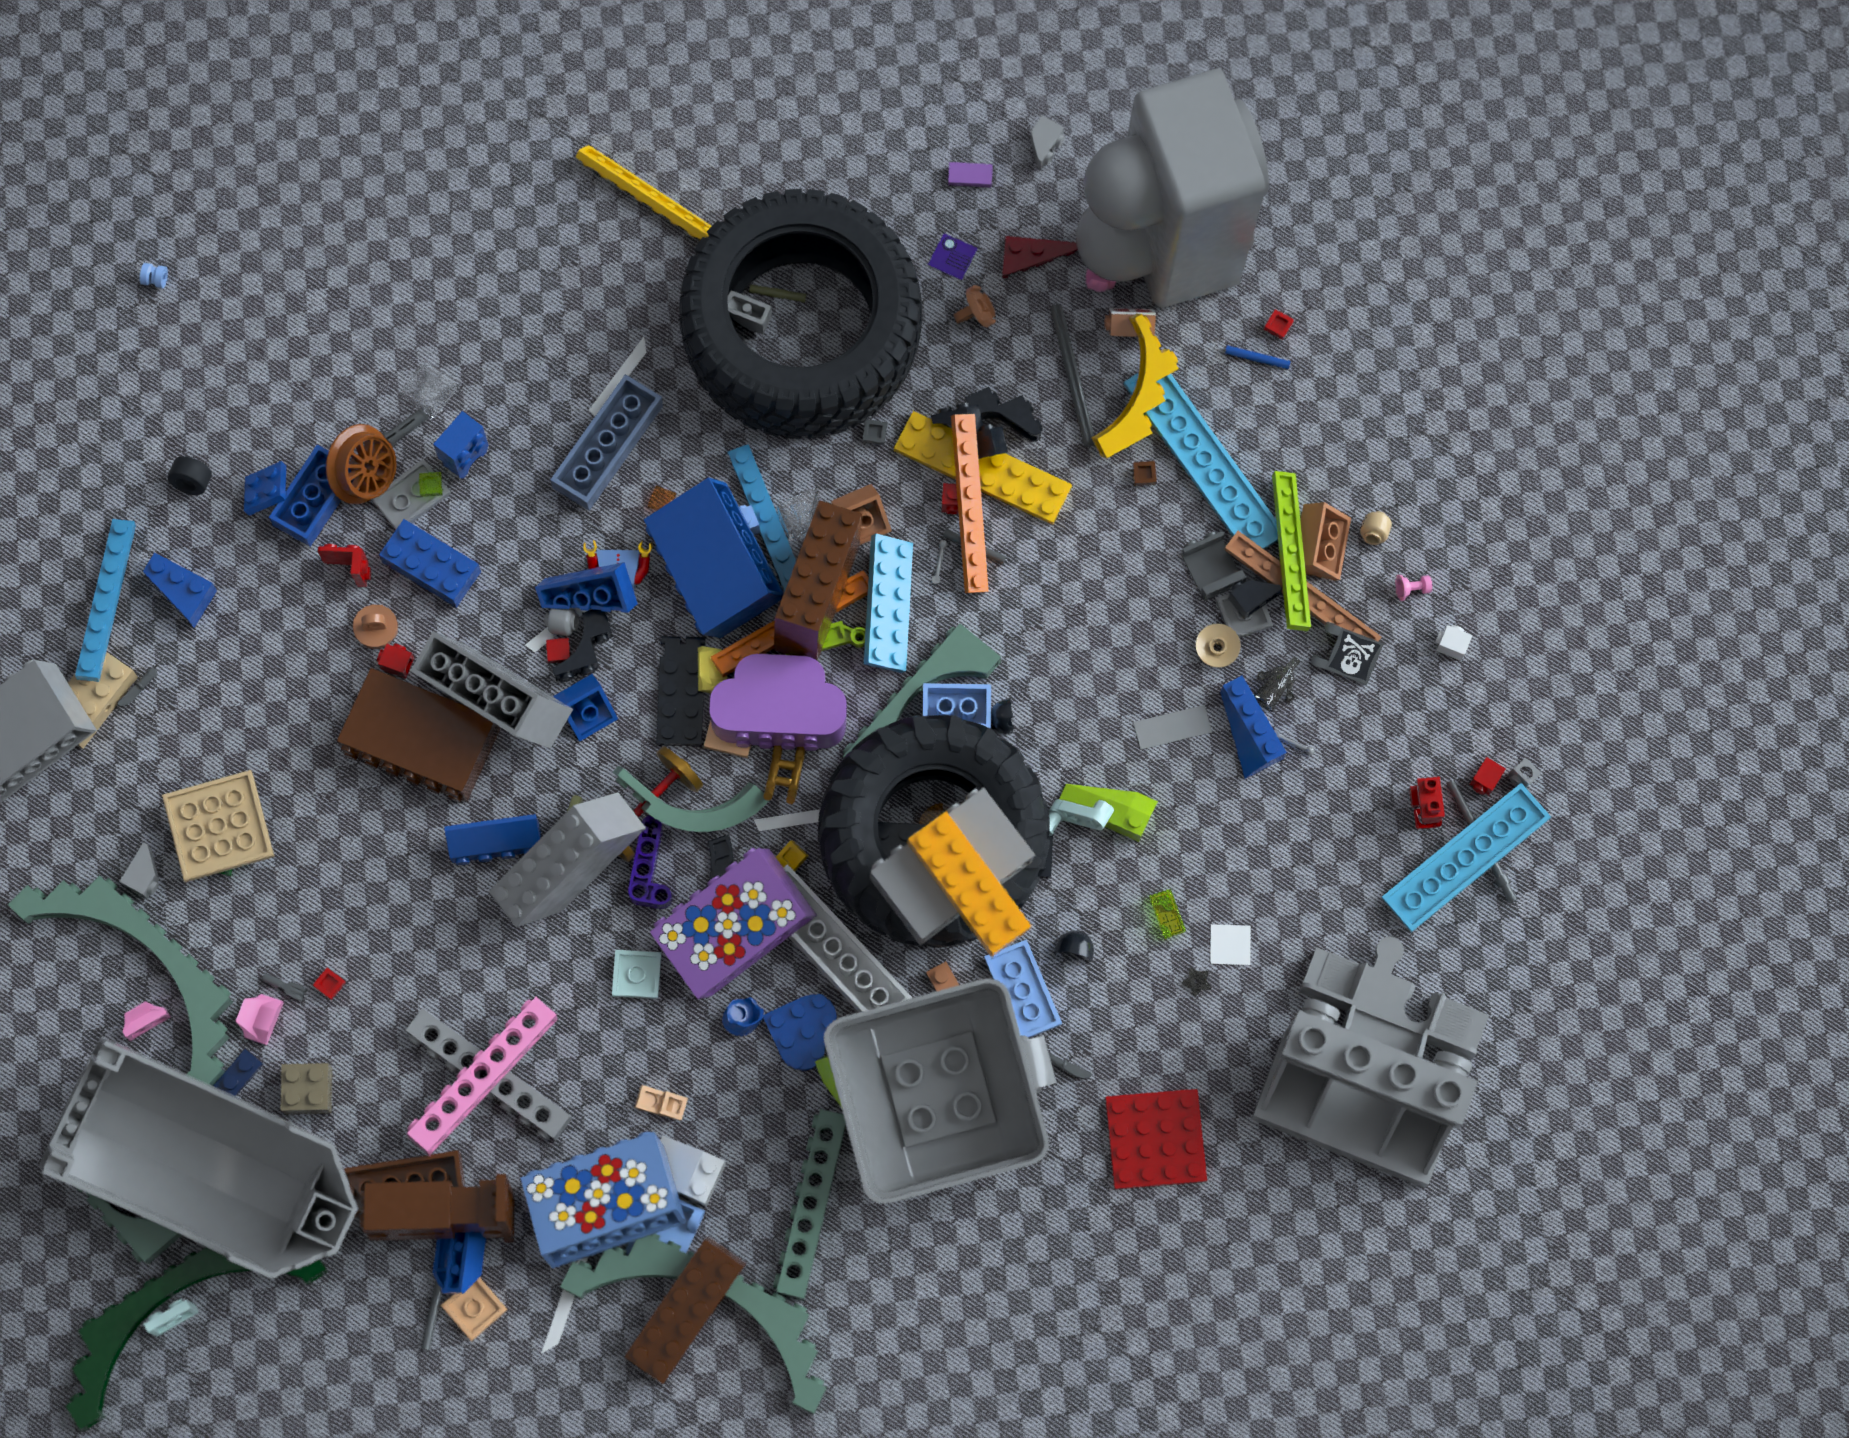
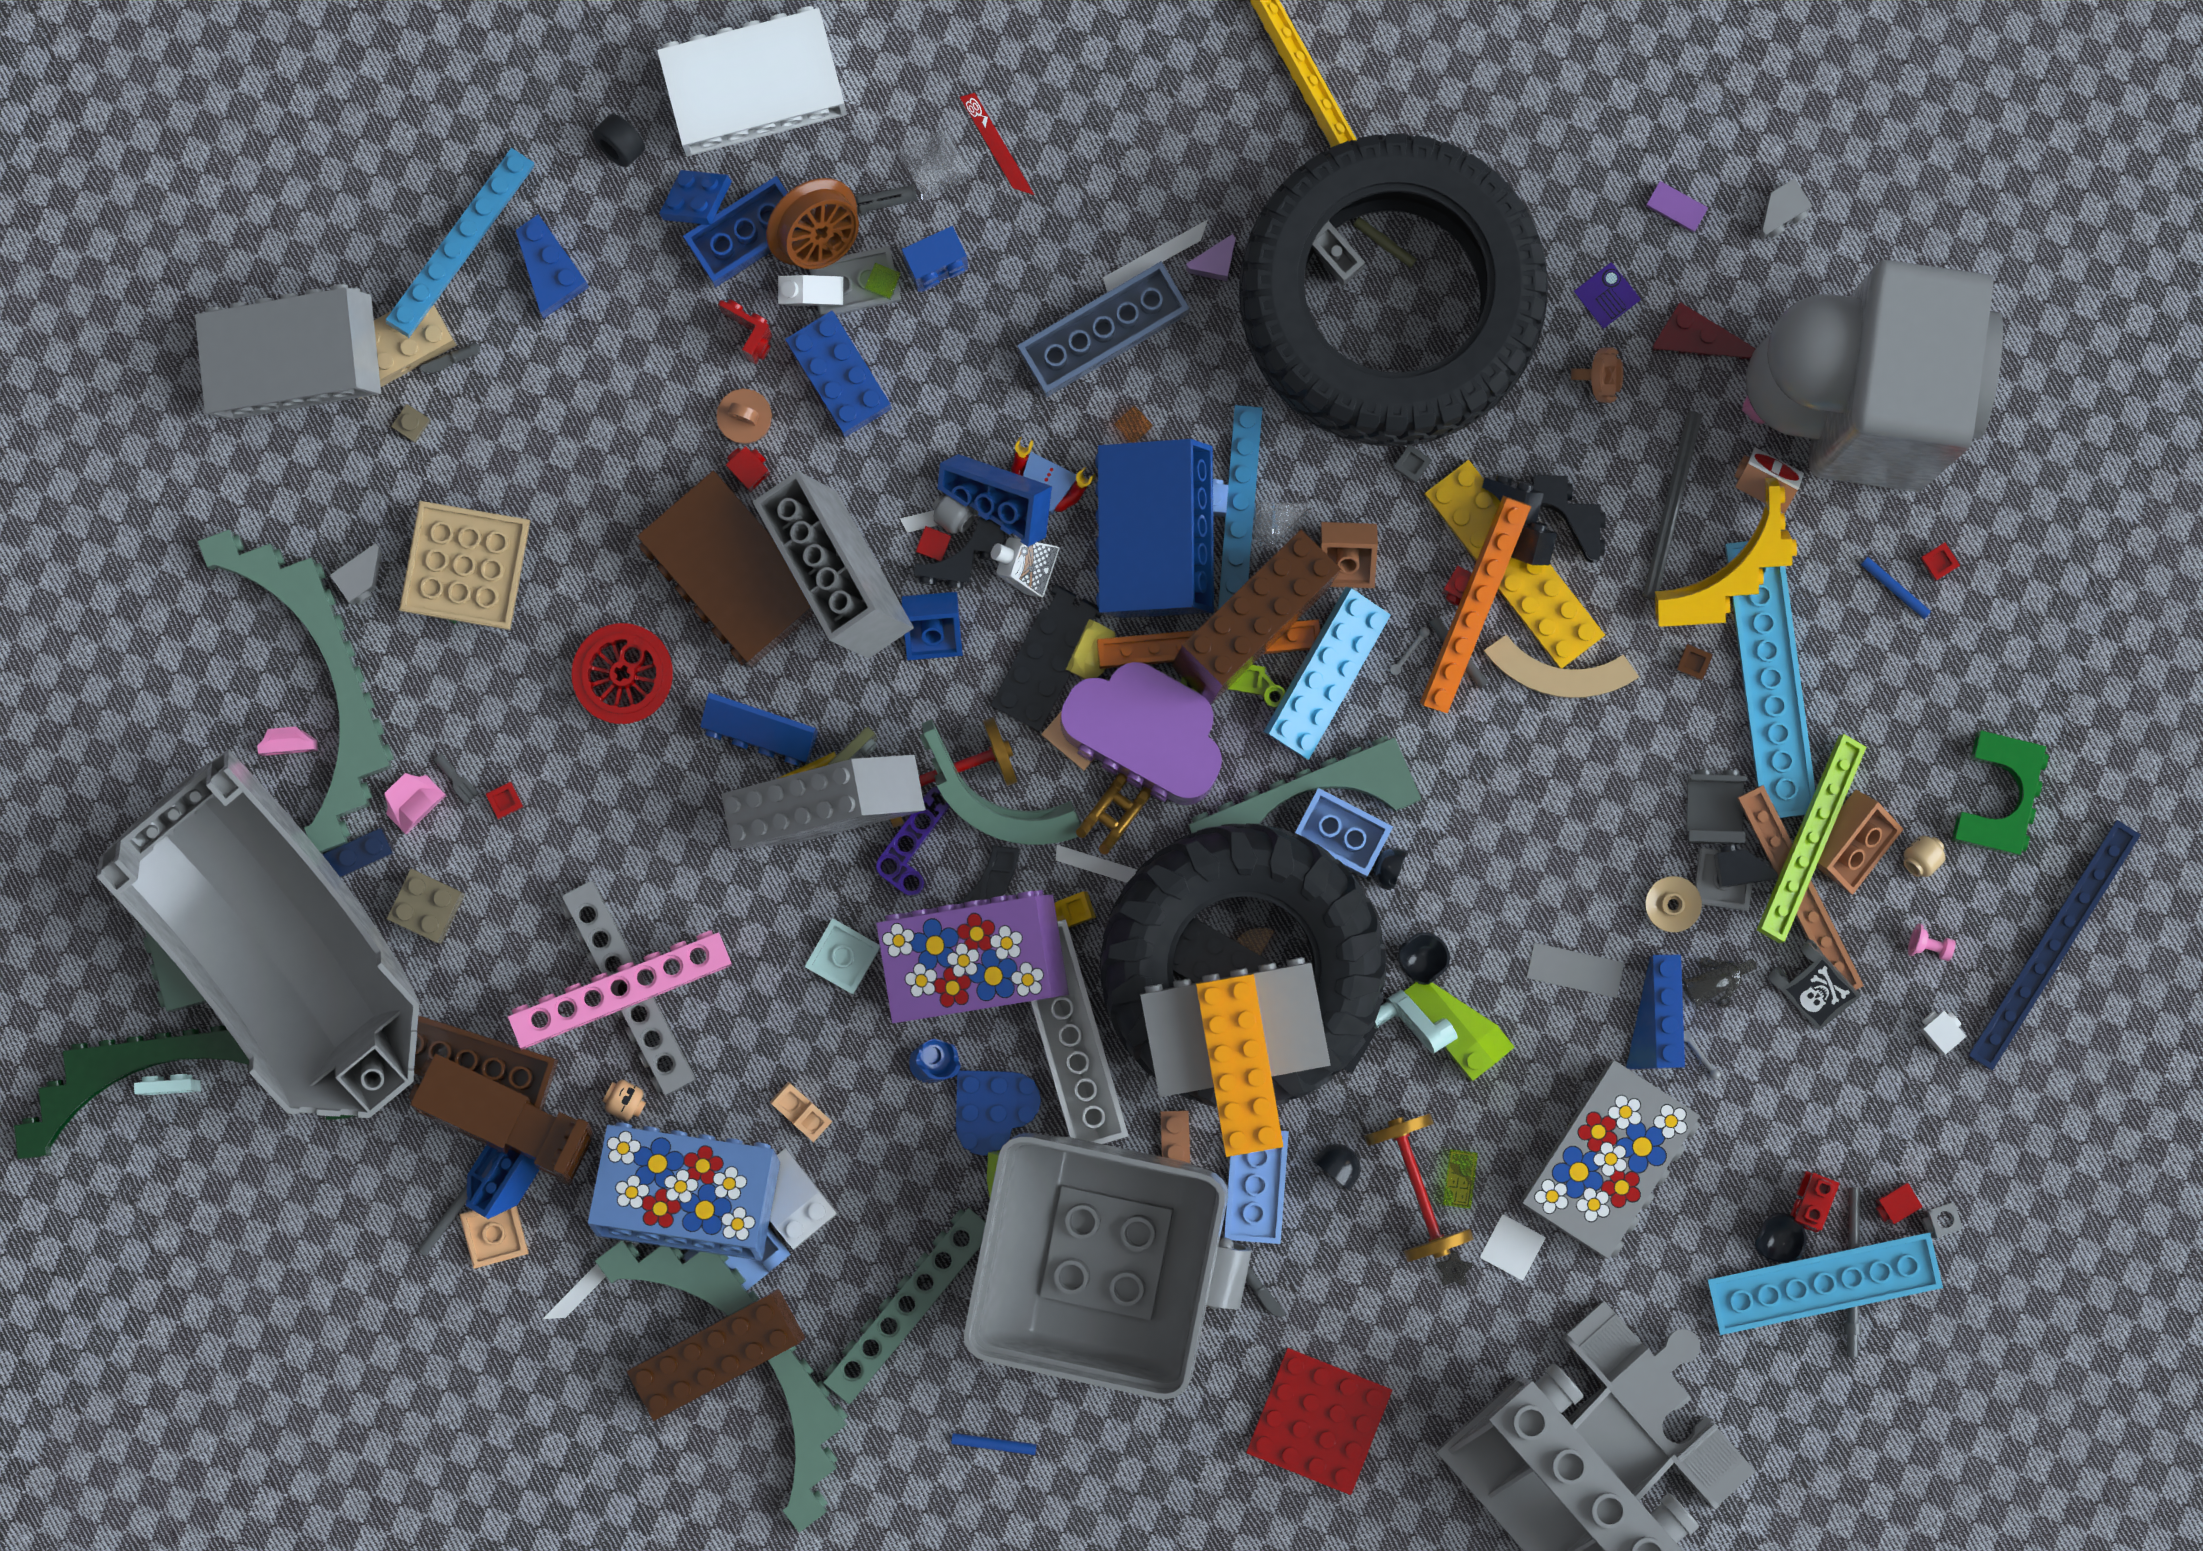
camera: 30 degrees right, 10 degrees up
(129, 747) = (411, 423): none -> dark tan plate
(268, 389) = (751, 81): none -> white brick
(371, 819) = (636, 638): none -> red piece
(380, 514) = (810, 290): none -> white slope
(465, 354) = (995, 143): none -> red sticker
(524, 1158) = (624, 1100): none -> light nougat head
(632, 630) = (1025, 566): none -> torso
(663, 360) = (1215, 261): none -> lavender slope
(925, 1276) = (993, 1444): none -> blue bar
(1055, 532) = (1558, 681): none -> tan tile
(1060, 768) = (1424, 957): none -> black helmet
(1106, 897) = (1438, 1243): none -> pearl gold piece
(1268, 844) = (1610, 1160): none -> brick
(1411, 432) = (2024, 763): none -> green arch
(1418, 841) = (1781, 1238): none -> black helmet
(1498, 546) = (2053, 945): none -> dark blue plate

